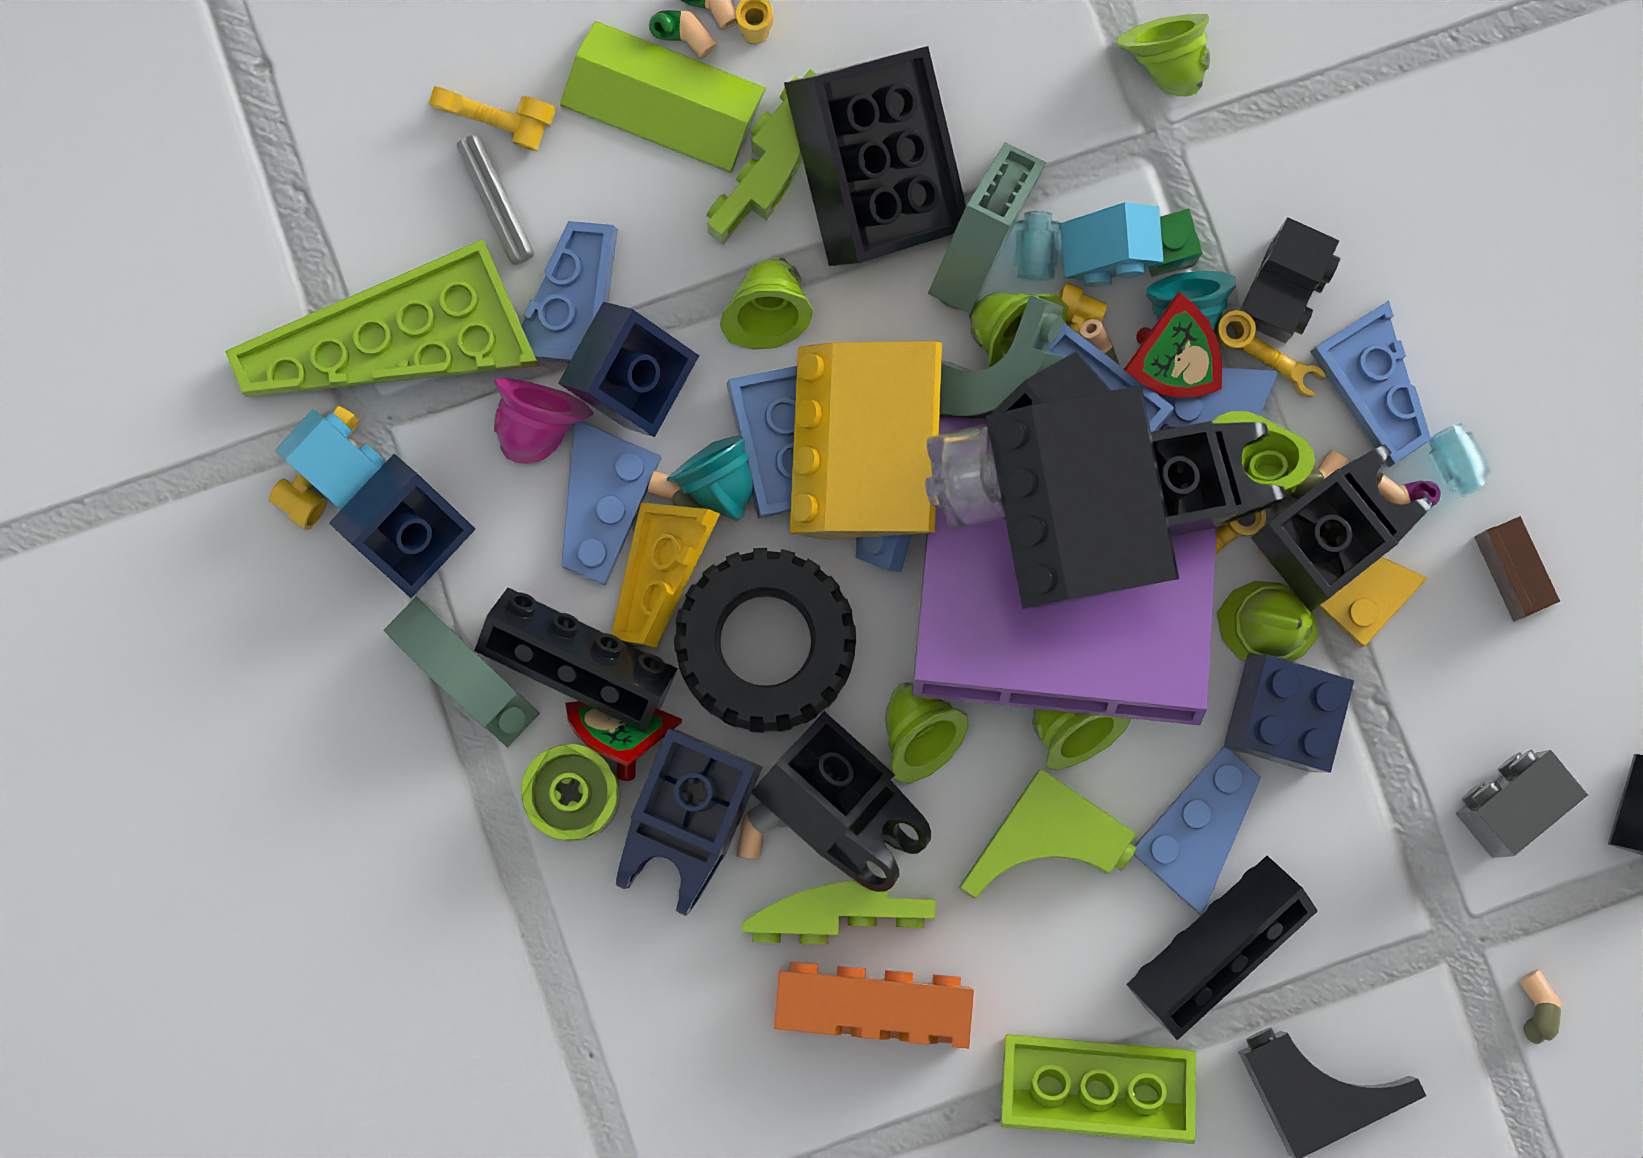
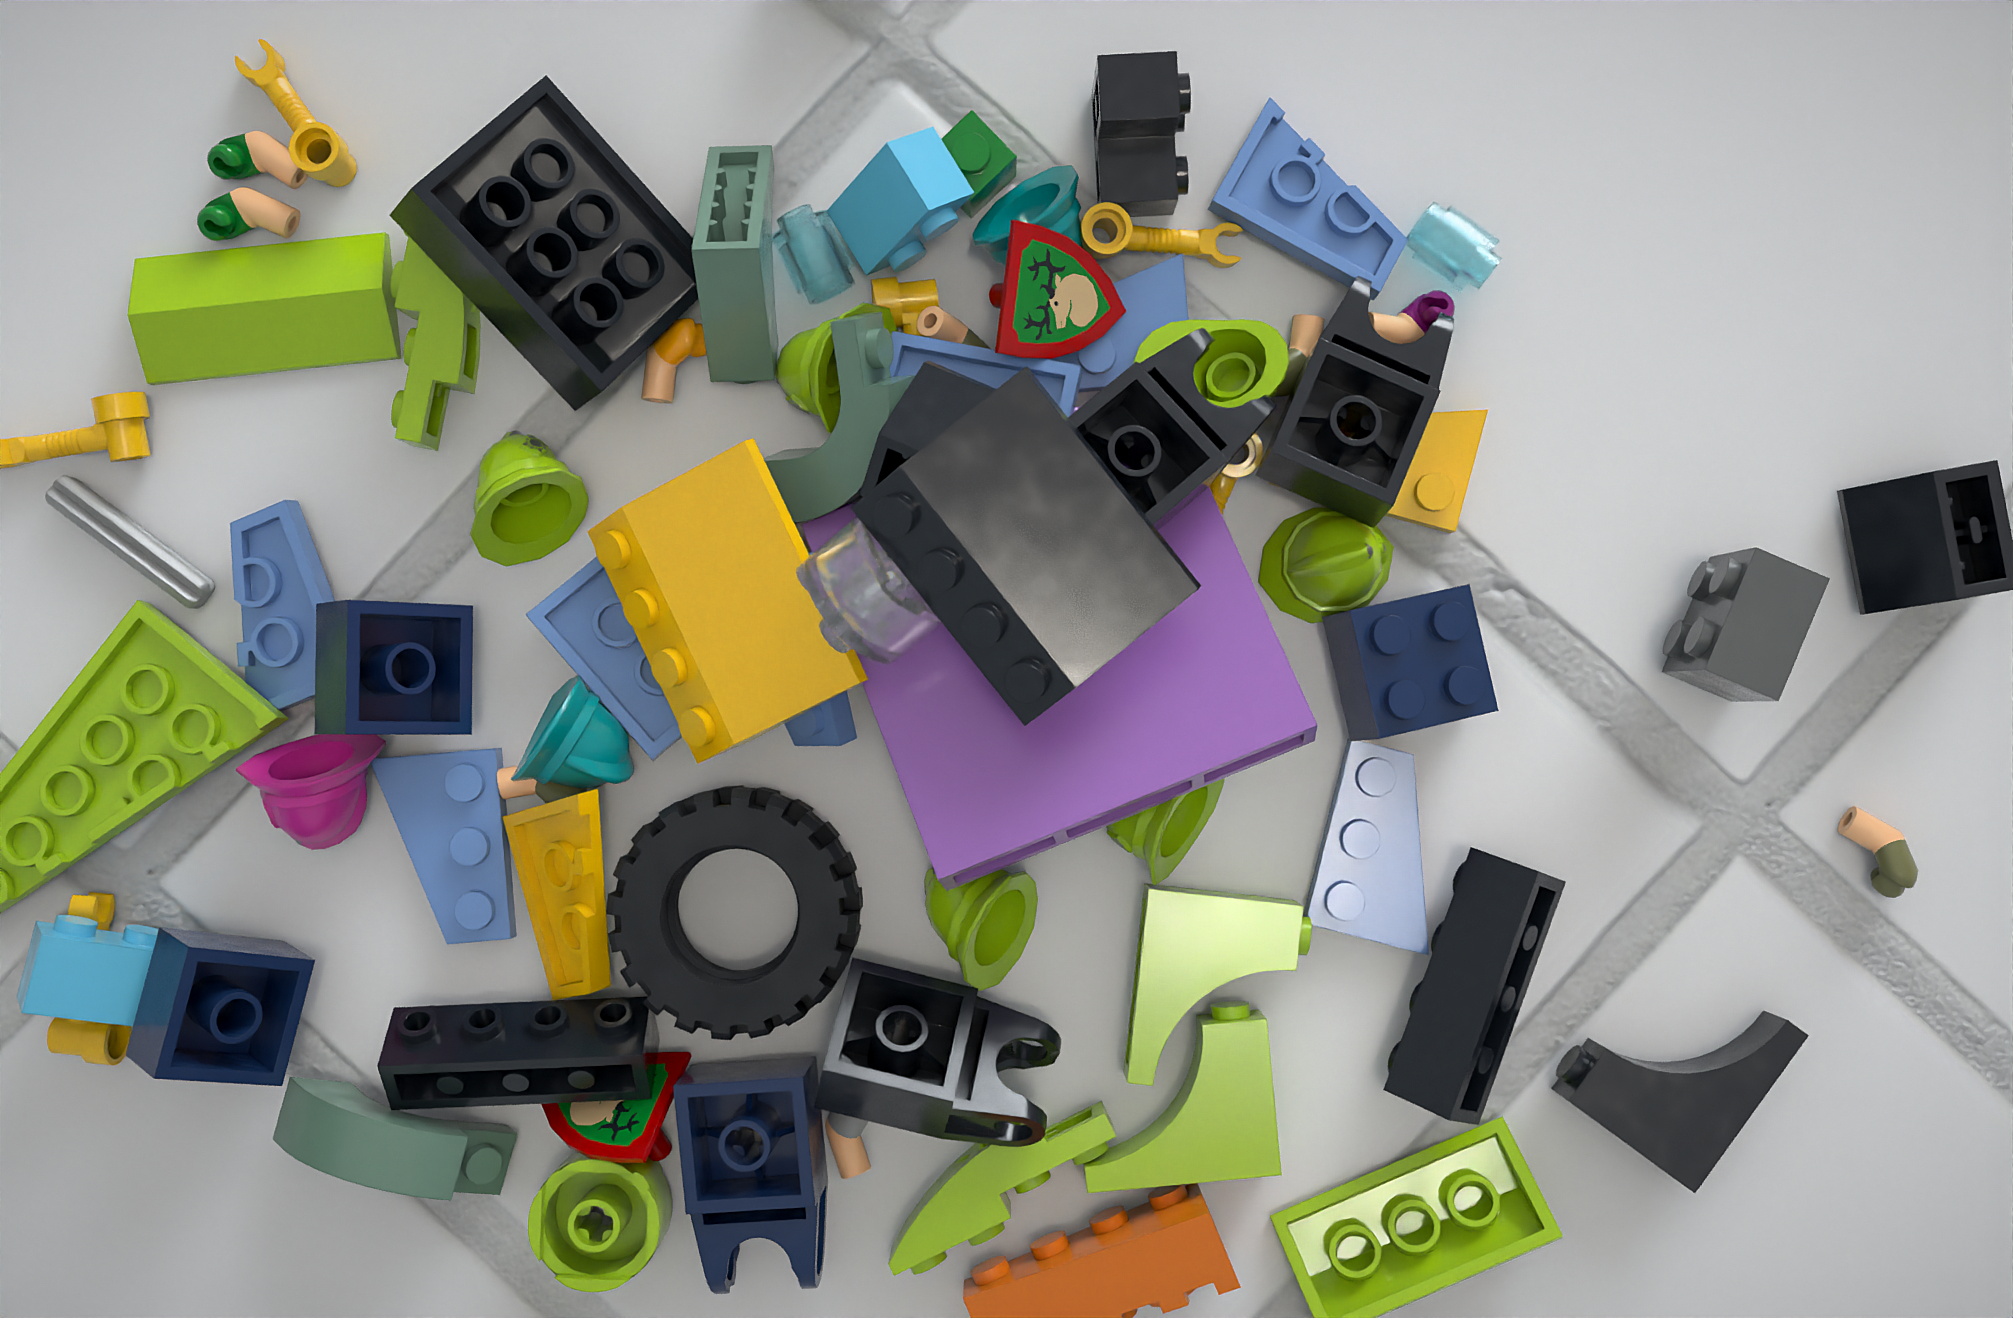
camera: 30 degrees left, 5 degrees up
(904, 261) = (664, 356): none -> arm
(1009, 947) = (1216, 1124): none -> lime arch
(1517, 568) = (1588, 342): reddish brown panel -> none

